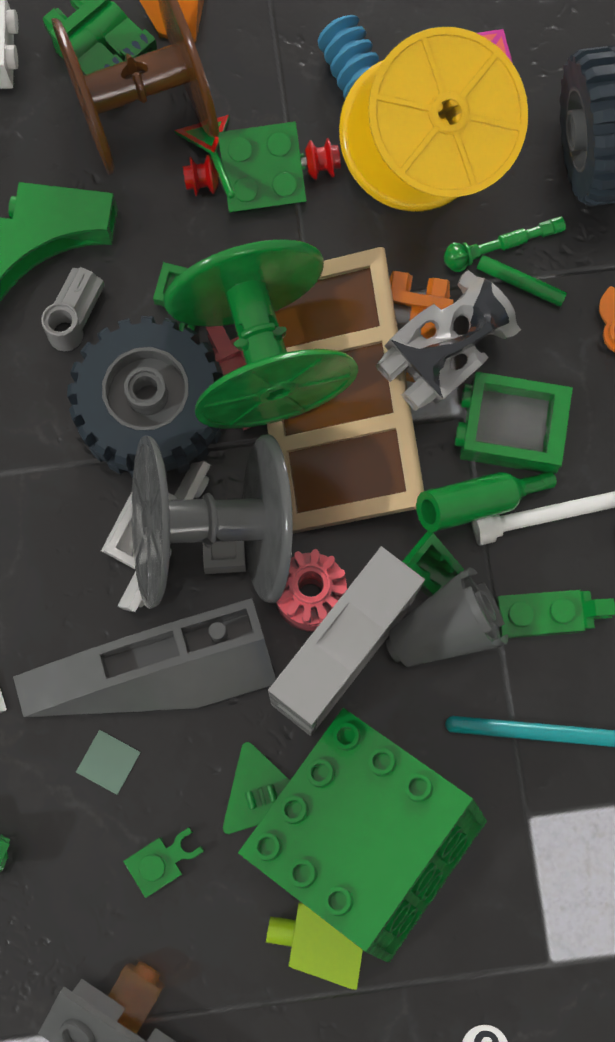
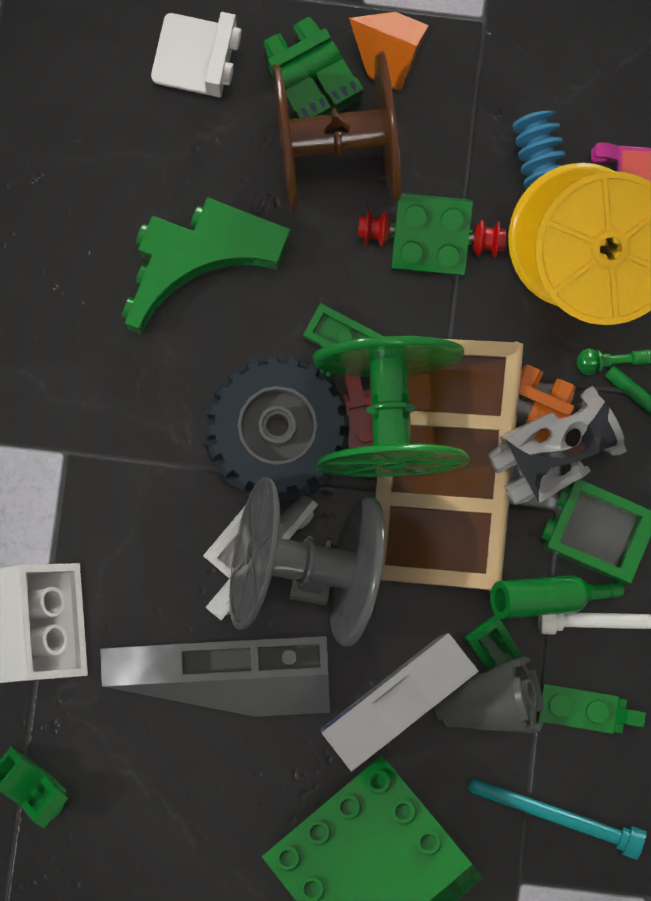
camera: 10 degrees right, 5 degrees up
(72, 306) = (230, 323): light grey piece -> none
(108, 762) = (165, 743): sand green sticker -> none
(157, 865) = (187, 843): green plate -> none
(197, 136) = (378, 185): green piece -> none
(253, 790) = (288, 801): green piece -> none
(311, 568) = (399, 645): coral gear -> none

